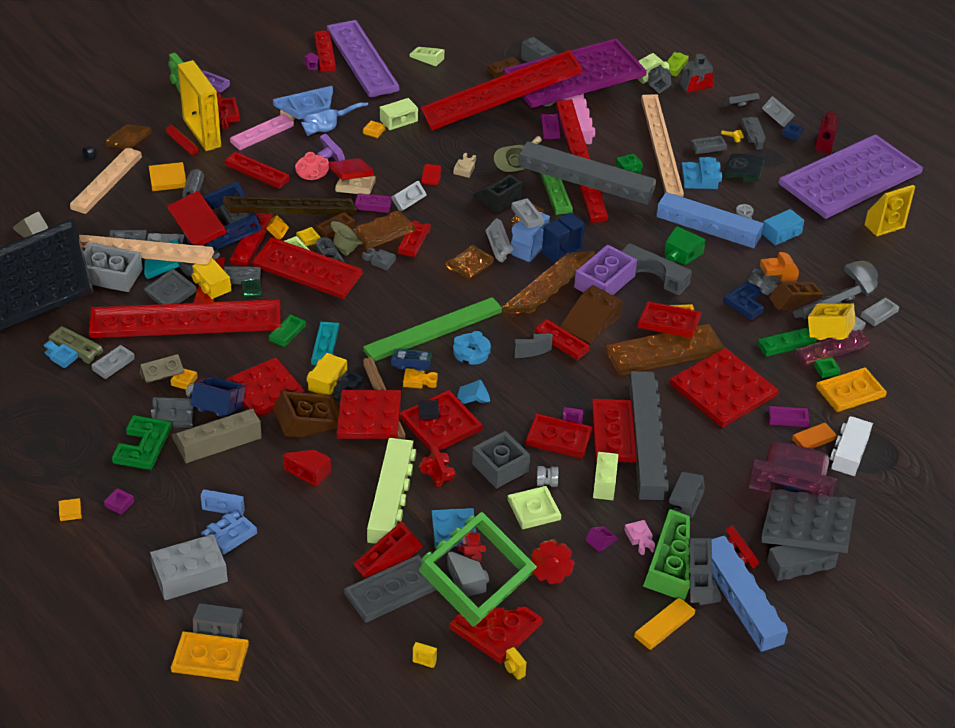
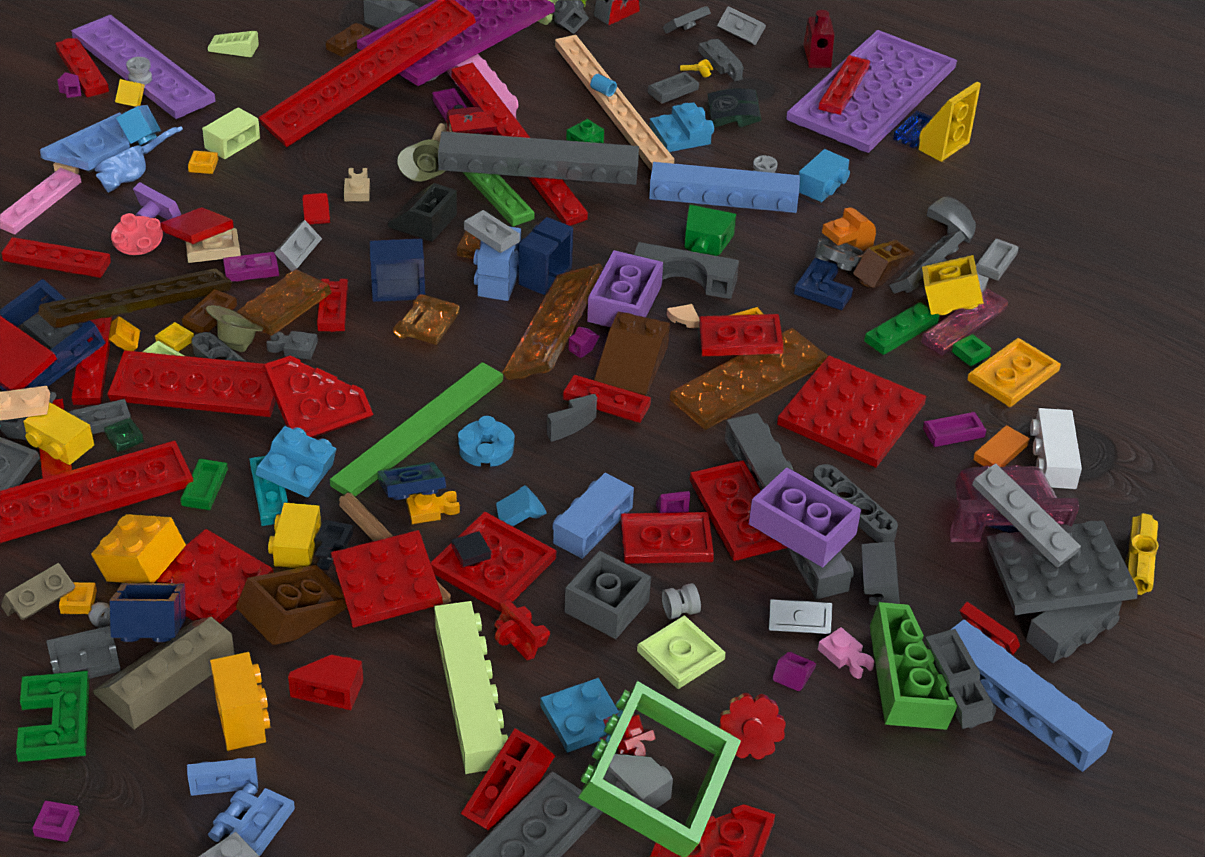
camera: 20 degrees left, 0 degrees up
(229, 358) = (138, 549): none -> light orange brick
(248, 461) = (240, 700): none -> light orange brick
(340, 96) = (139, 125): none -> dark azure brick
(346, 74) = (129, 93): none -> yellow tile
(347, 330) = (297, 461): none -> dark azure plate
(356, 60) = (139, 70): none -> light grey wheel
(373, 295) = (314, 397): none -> red plate
(462, 225) = (397, 269): none -> dark blue piece
(499, 240) = (455, 279): light grey plate -> none
(517, 409) = (592, 515): none -> medium blue brick
(554, 139) = (469, 120): none -> torso
(564, 299) = (582, 341): none -> magenta piece
(605, 476) = (760, 576): yellowish green brick -> none
(620, 505) = (800, 616): none -> plate
(640, 298) = (685, 315): none -> light nougat tile
(646, 443) = (804, 517): none -> medium lavender brick
(658, 133) = (603, 85): none -> dark azure hinge
(664, 623) = (939, 770): light orange tile -> none
(691, 446) = (868, 523): none -> dark grey beam
(792, 131) = (772, 47): dark blue plate -> none
(794, 480) = (1026, 515): none -> light grey plate
(829, 168) = (844, 85): none -> red tile
(865, 205) = (913, 135): none -> clear blue tile
(873, 528) = (1142, 552): none -> yellow piece

